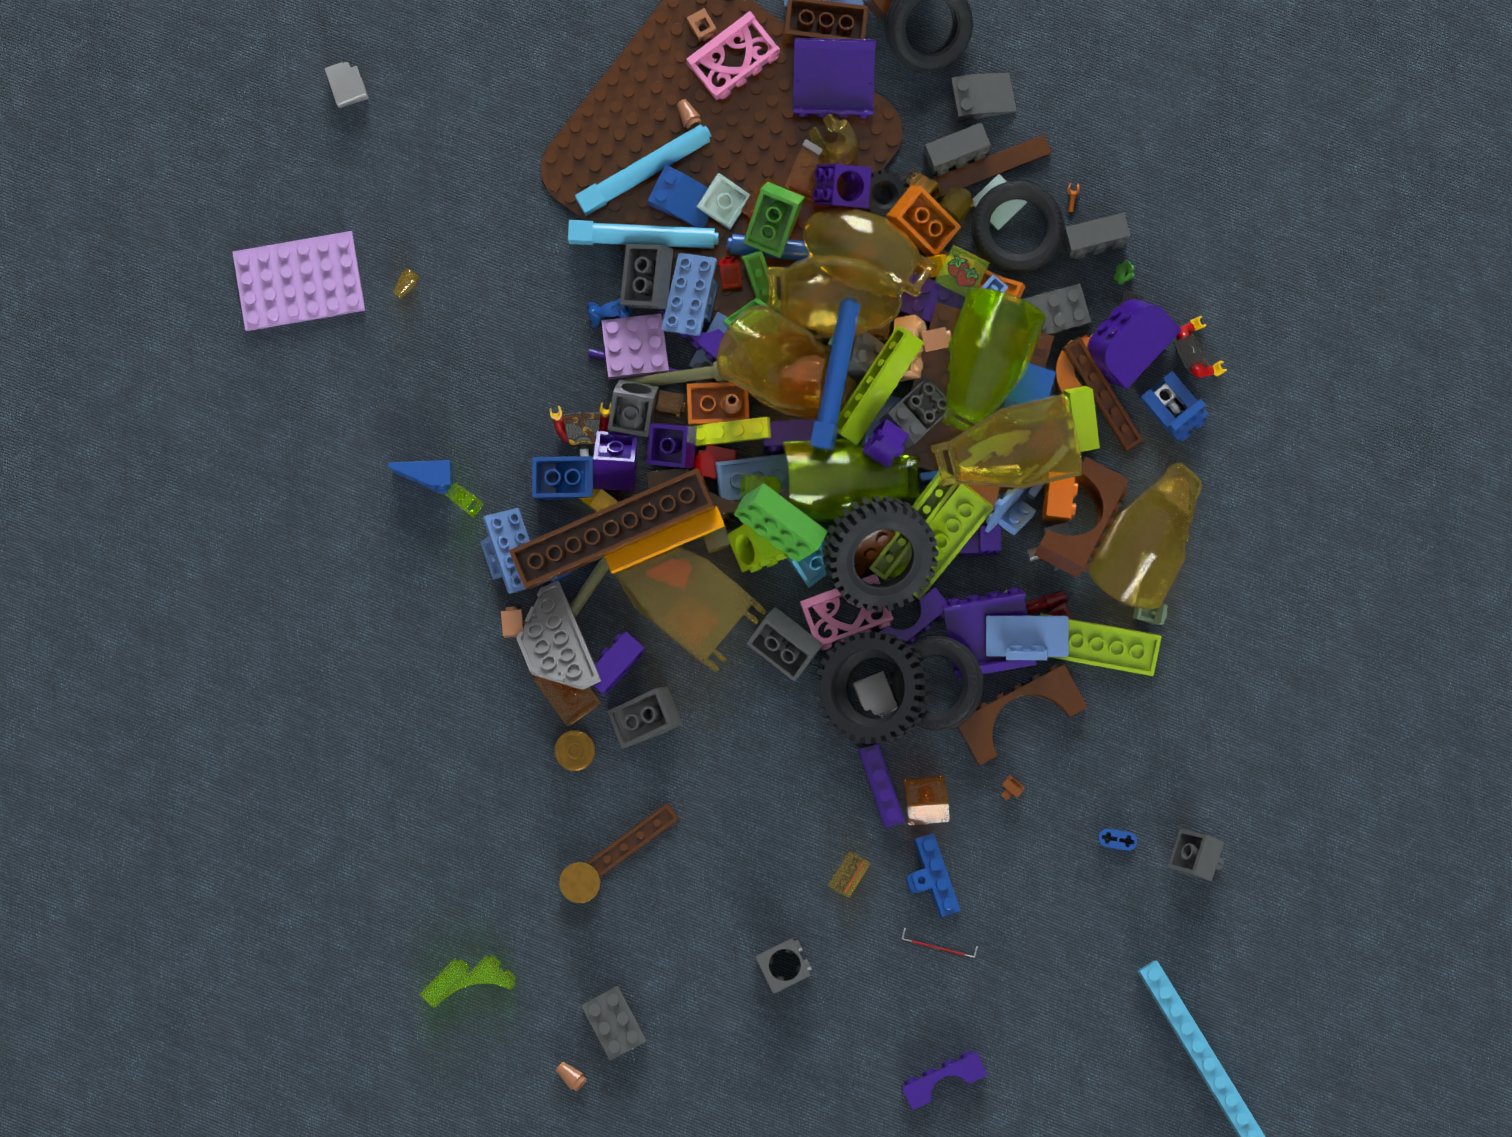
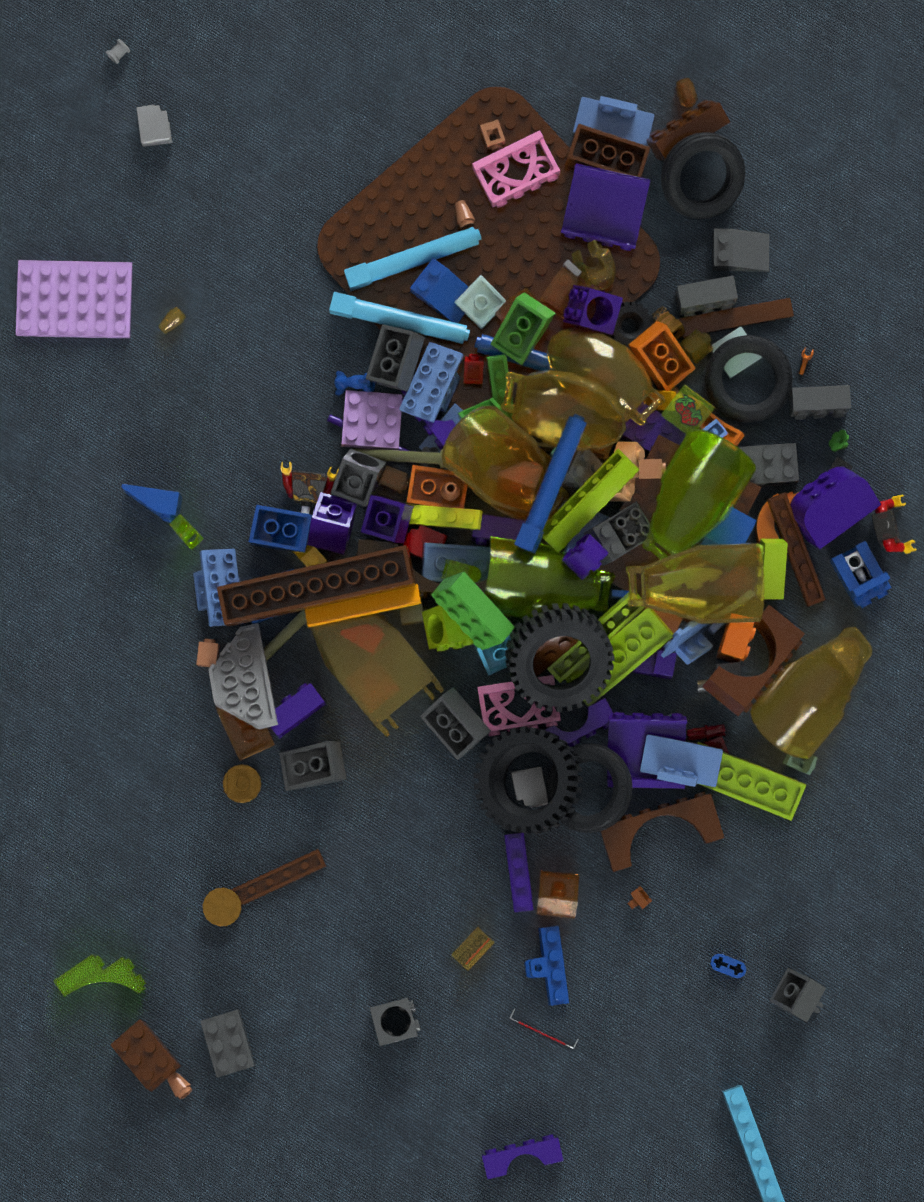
camera: 10 degrees right, 0 degrees up
(293, 14) = (117, 51): none -> light grey bush
(531, 1052) = (145, 1055): none -> reddish brown brick

